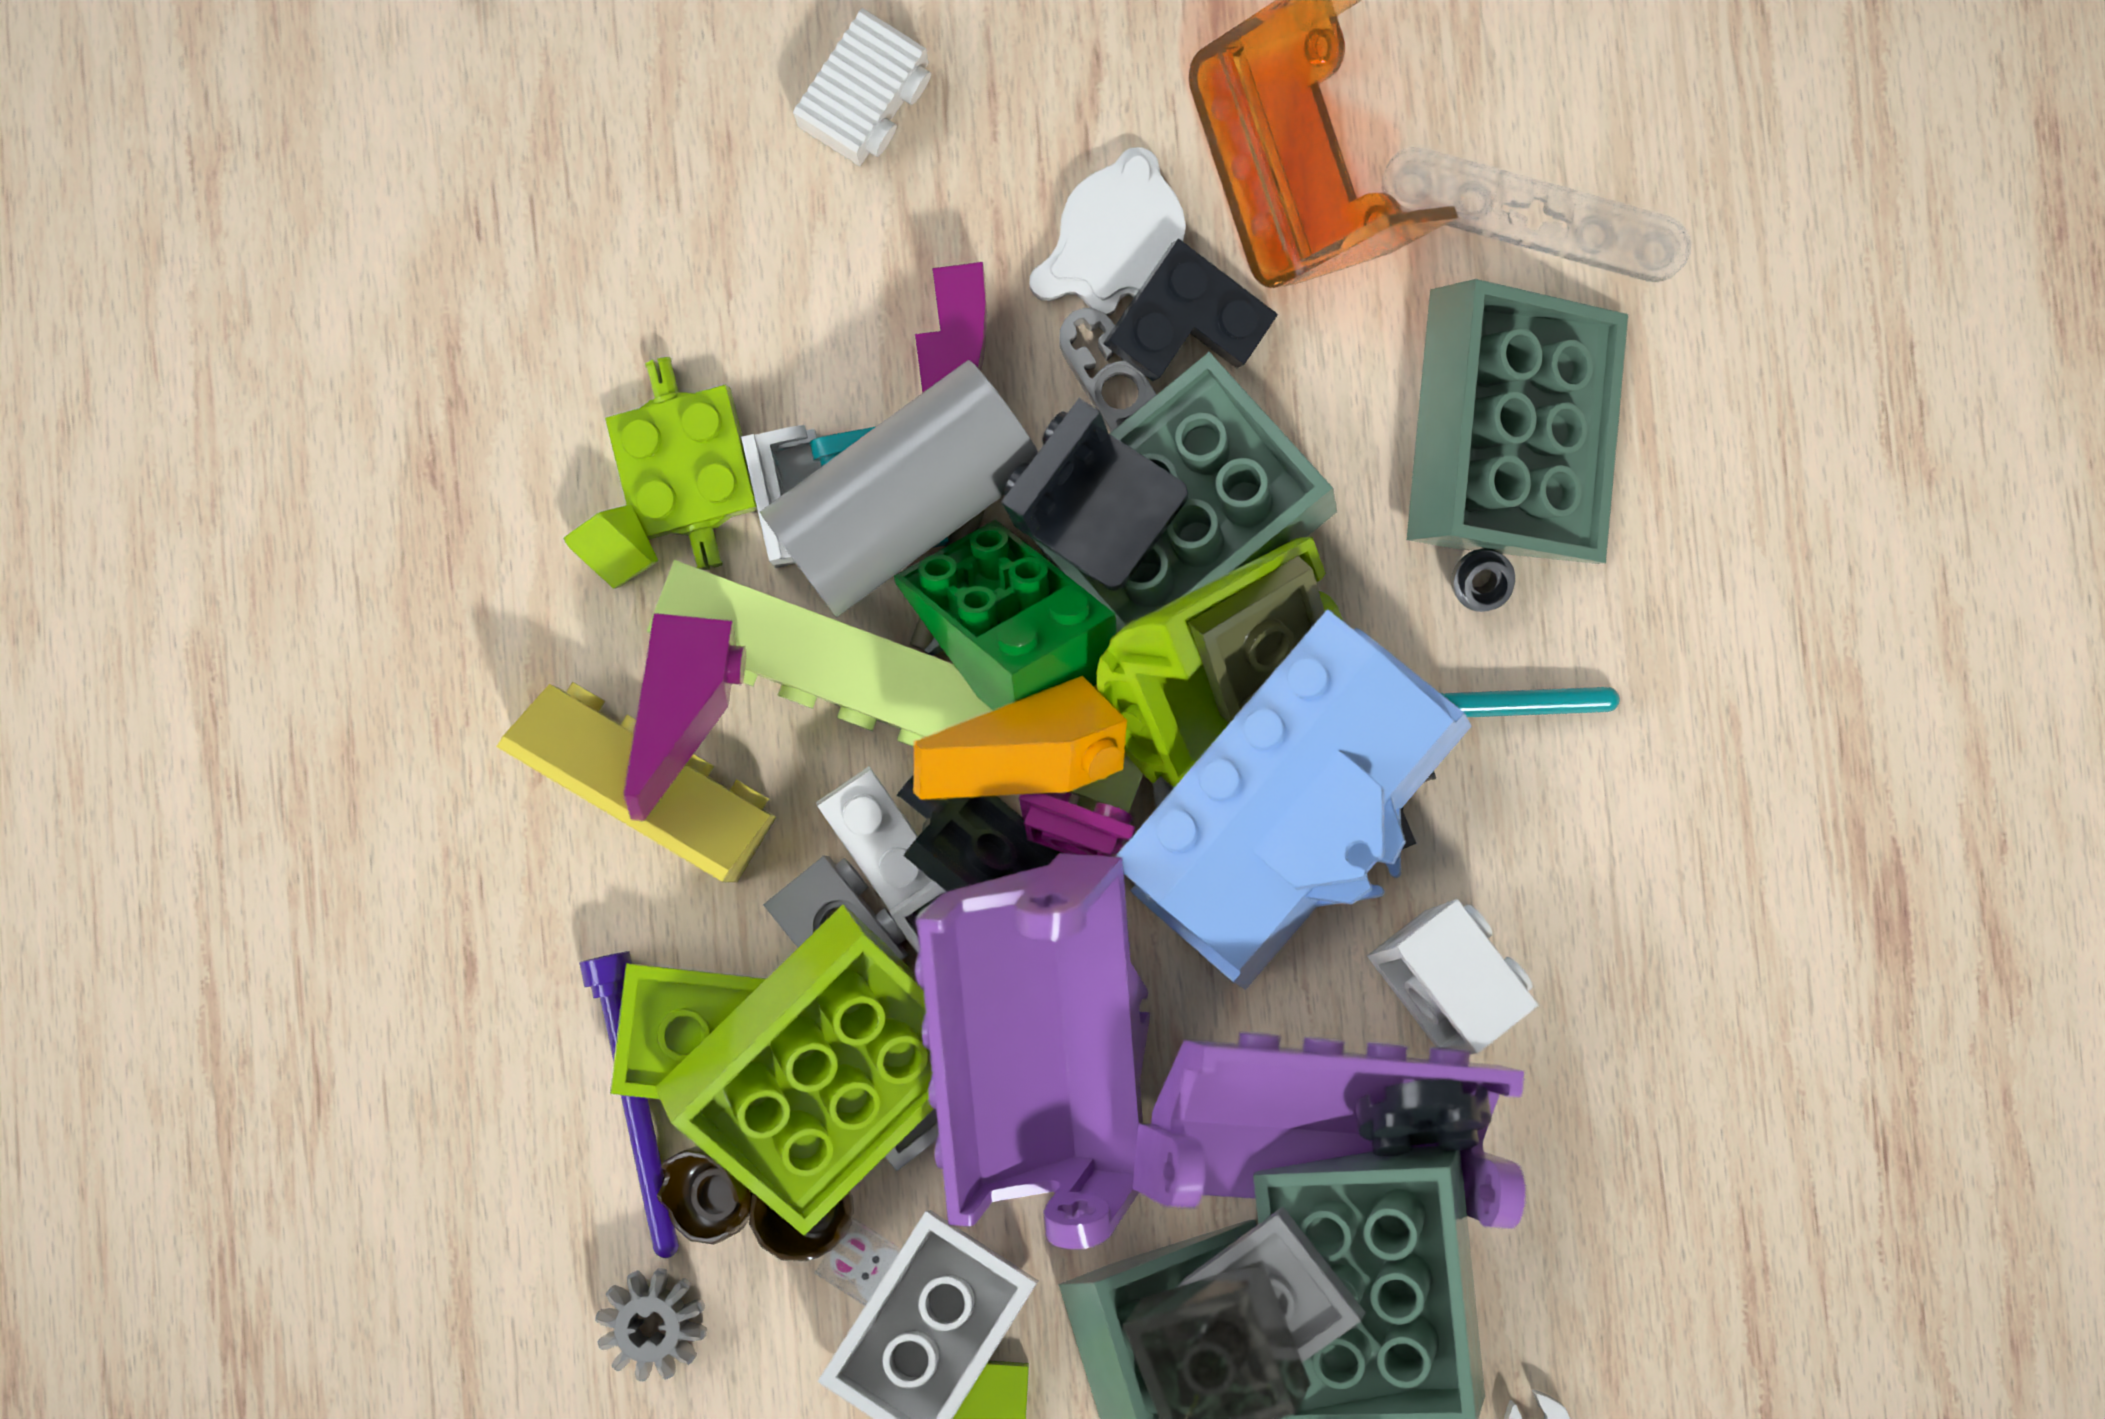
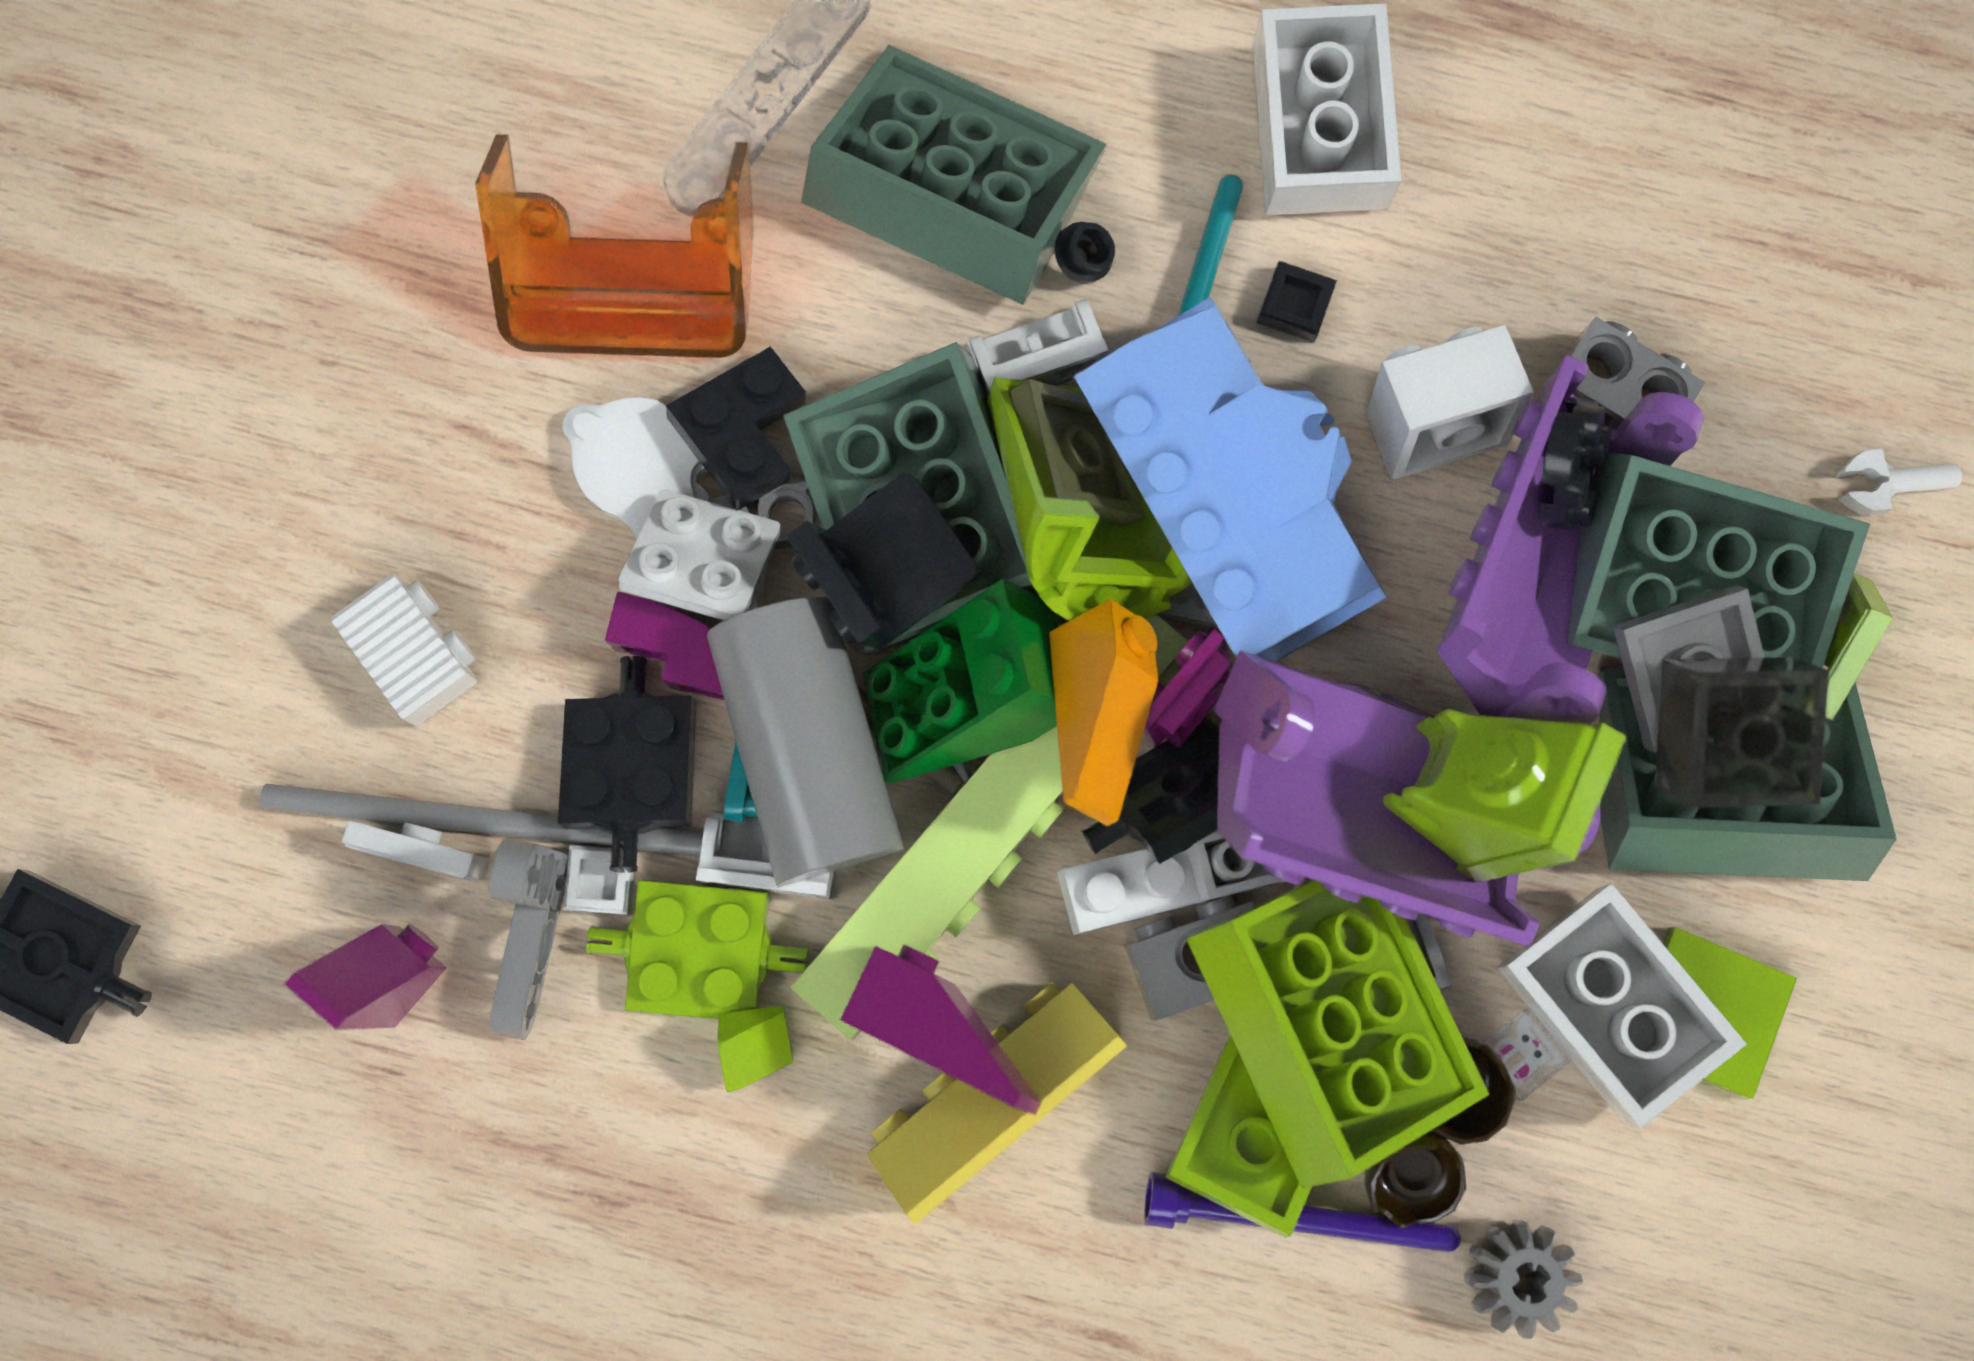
camera: 75 degrees left, 5 degrees down
(546, 178) = (370, 978): none -> magenta slope
(681, 290) = (535, 882): none -> light grey beam
(683, 171) = (415, 847): none -> white plate
(715, 349) = (593, 886): none -> white tile
(732, 220) = (464, 818): none -> light grey piece
(830, 333) = (627, 763): none -> black plate
(1042, 327) = (700, 556): none -> white bracket
(1078, 1149) = (1507, 790): none -> lime piece
(1367, 571) = (1043, 350): none -> white hinge
(1513, 803) = (1296, 301): none -> black tile
(1561, 1153) = (1630, 369): none -> light grey brick
(1713, 763) = (1326, 109): none -> white brick

